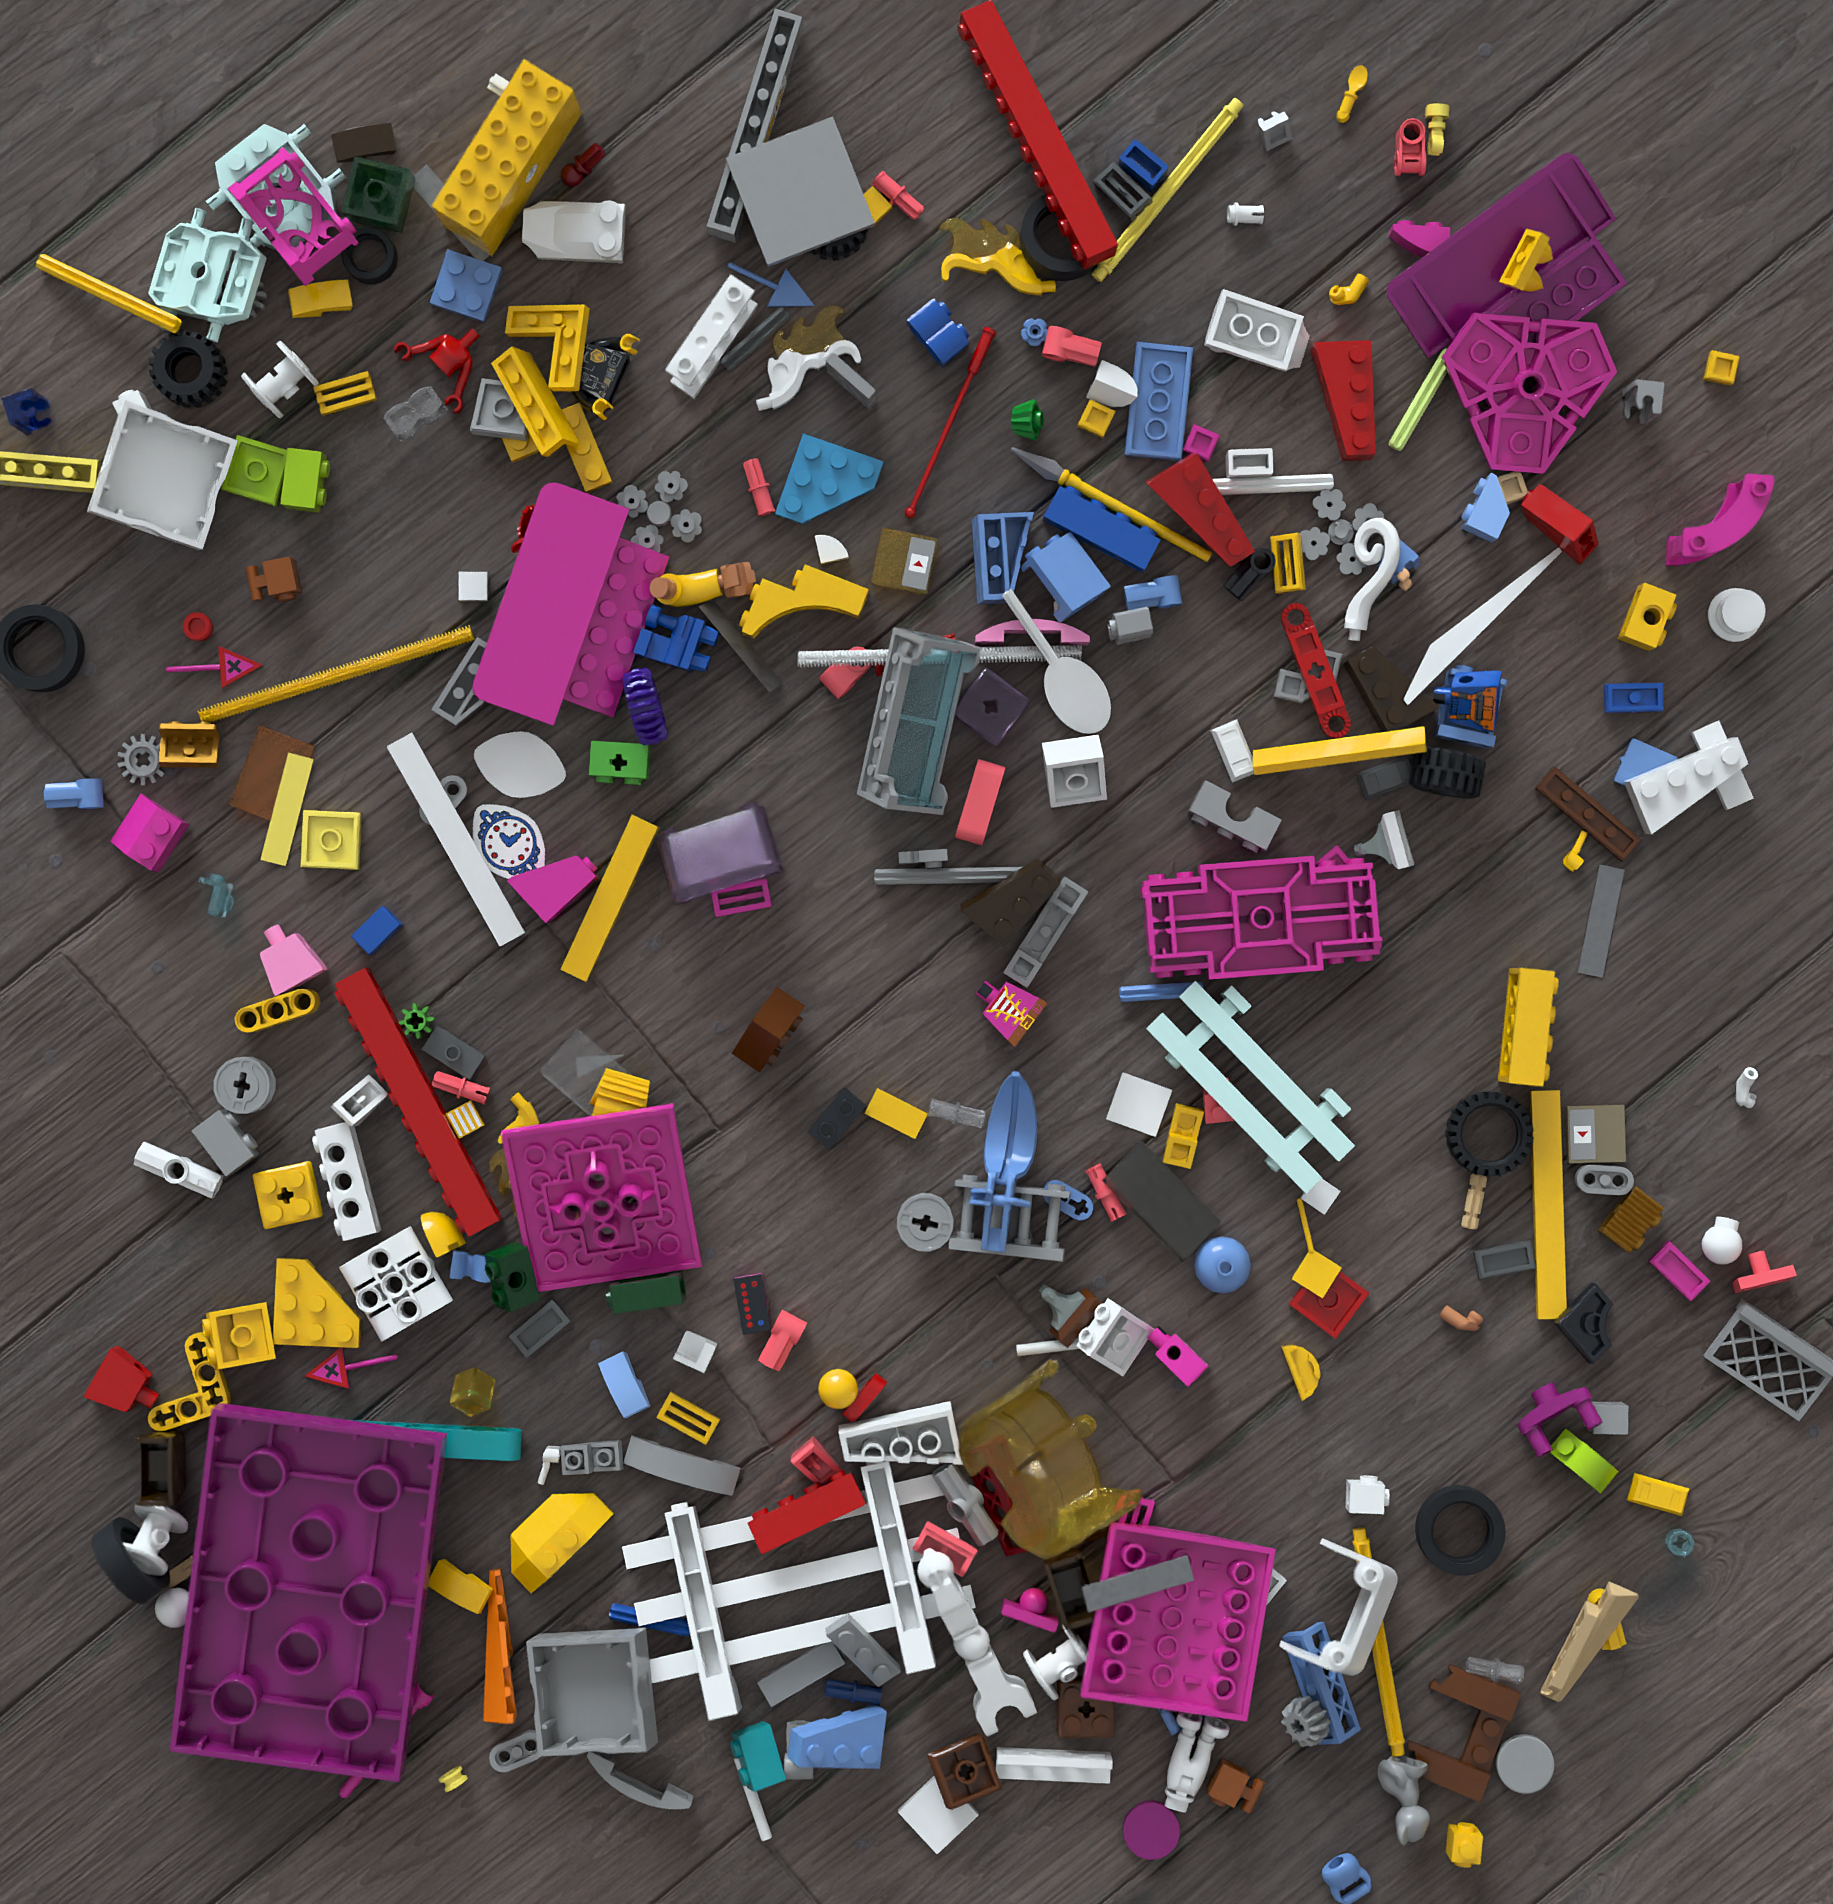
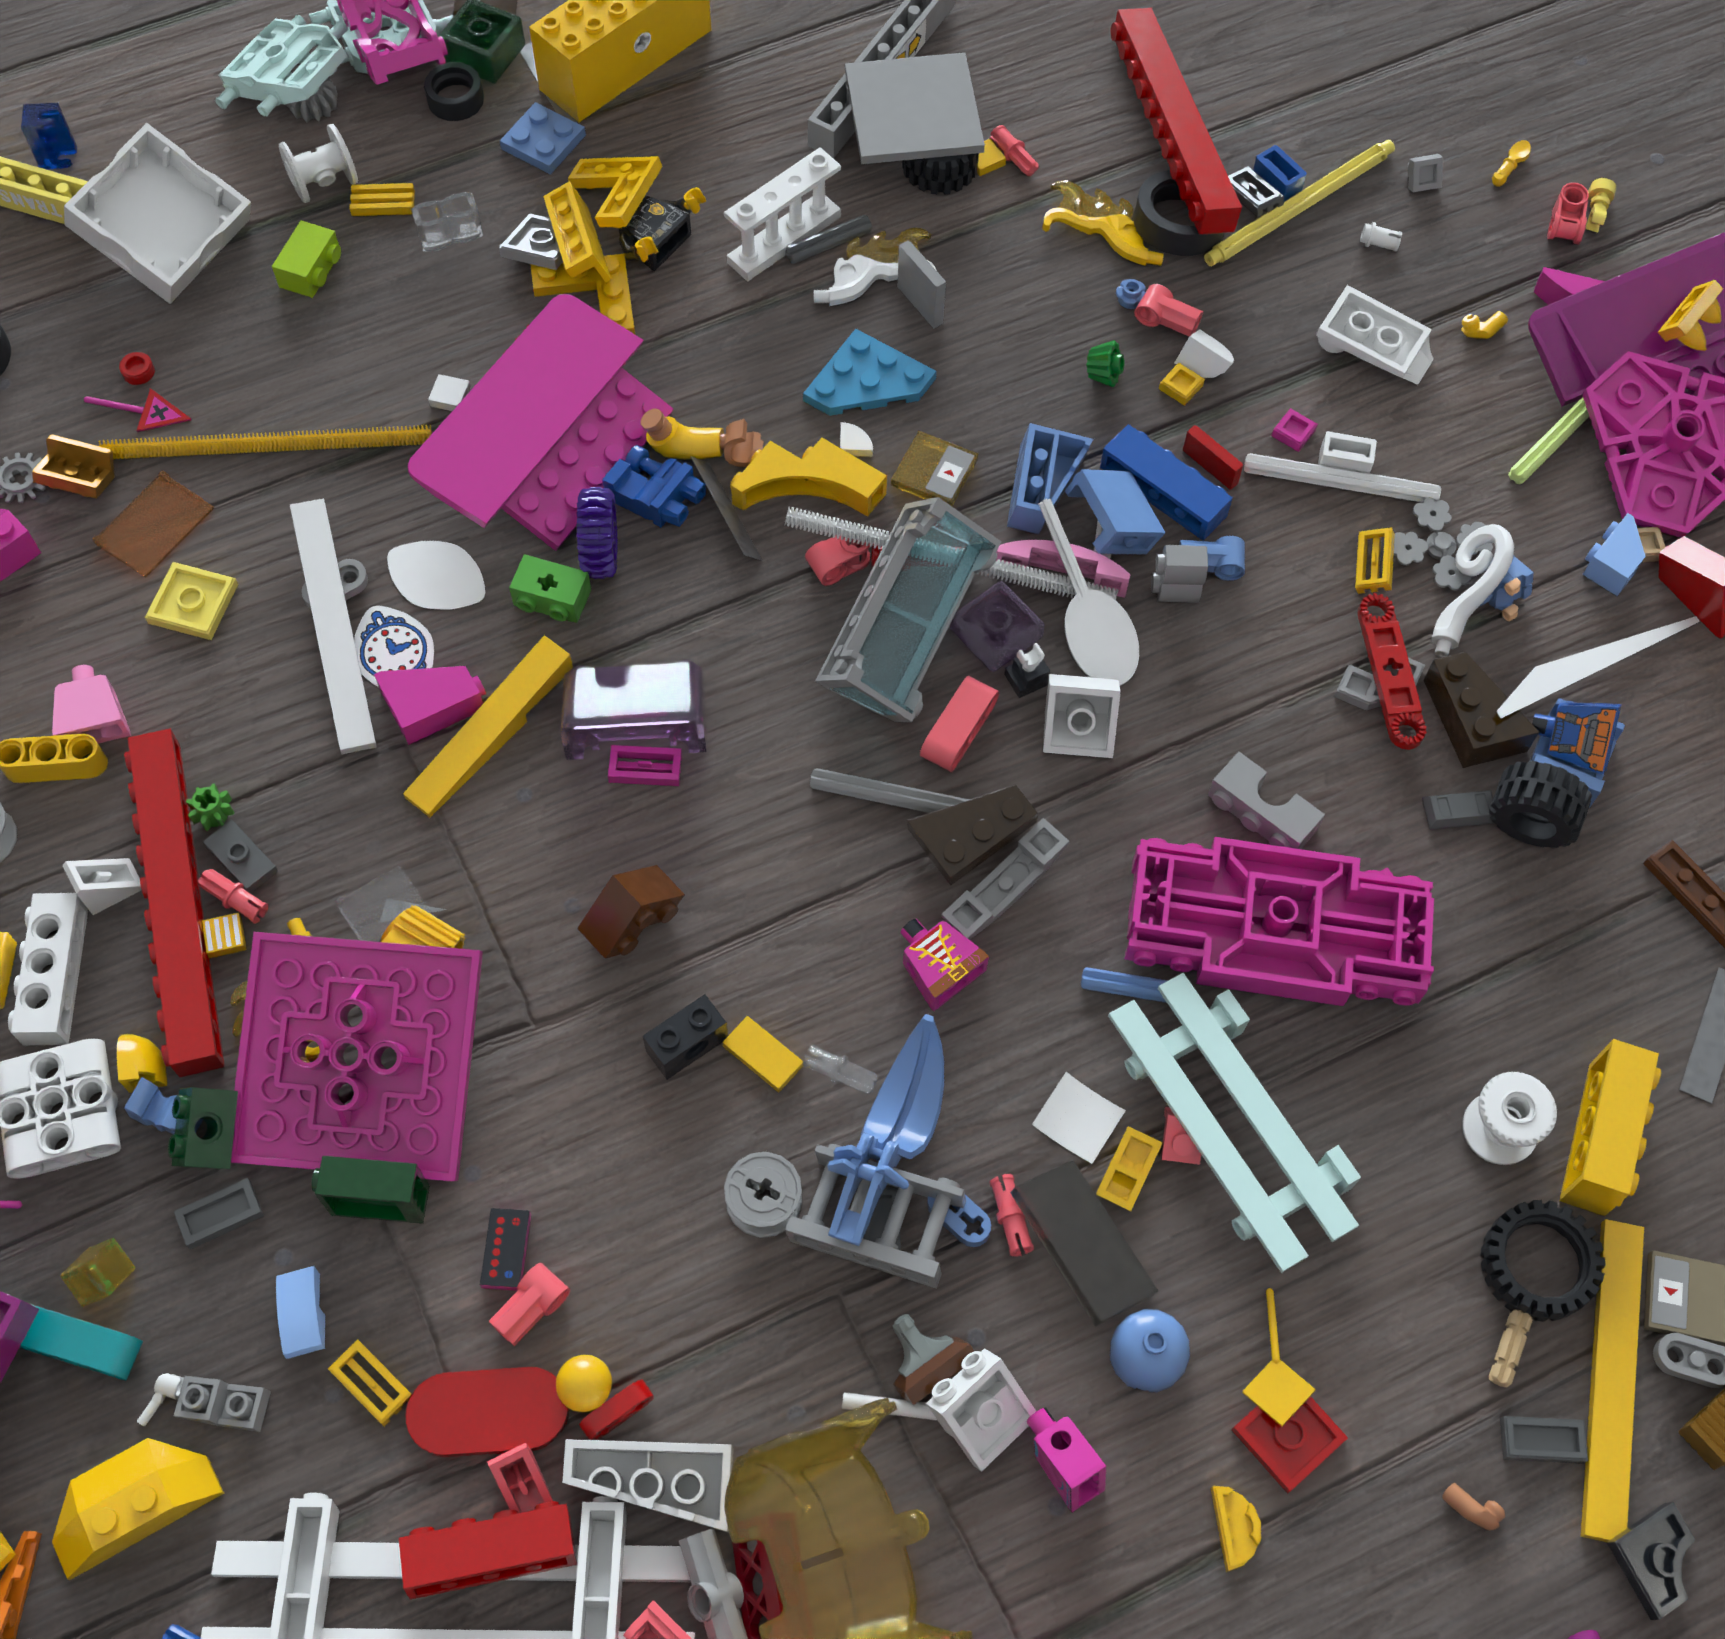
camera: 10 degrees right, 25 degrees down
(108, 293) = (178, 62): yellow axle -> none
(169, 356) = (229, 139): black tyre -> none
(221, 897) = (39, 624): clear light blue bracket -> none
(256, 471) = (256, 245): lime tile -> none
(279, 578) = (243, 338): dark orange brick -> none
(286, 809) = (155, 560): light yellow sticker -> none
(319, 298) = (379, 111): yellow slope -> none
(377, 930) = (203, 700): blue piece -> none
(448, 357) = (500, 189): red piece -> none
(458, 696) = (387, 484): light grey wedge -> none
(573, 173) = (685, 72): dark red axle -> none
(575, 231) = (672, 115): white slope -> none
(659, 512) = (677, 368): light grey plant -> none
(681, 1467) = (341, 1447): light grey slope -> none
(695, 1351) = (411, 1293): white panel -> none
(758, 487) = (792, 368): coral axle -> none
(774, 1418) = (485, 1411): none -> red tile
(786, 293) = (876, 208): medium blue piece -> none
(931, 858) = (879, 765): light grey plate -> none
(938, 332) = (1026, 269): blue brick -> none
(973, 369) = (1080, 285): red piece -> none
(1024, 742) = (1028, 671): none -> black piece
(1052, 470) = (1120, 417): yellow piece -> none
(1136, 494) = (1212, 457): none -> red tile
(1160, 408) = (1254, 383): medium blue tile -> none
(1198, 502) = (1287, 478): red wedge -> none
(1234, 750) = (1277, 741): white tile -> none
(1248, 575) = (1329, 558): black piece -> none
(1321, 1196) = (1299, 1288): white tile -> none
(1339, 750) = (1410, 753): yellow tile -> none
(1347, 385) = (1470, 409): red wedge -> none
(1389, 842) = (1454, 875): white piece -> none
(1469, 1038) = (1509, 1118): none -> white hose
(1572, 860) = (1686, 951): yellow hand -> none

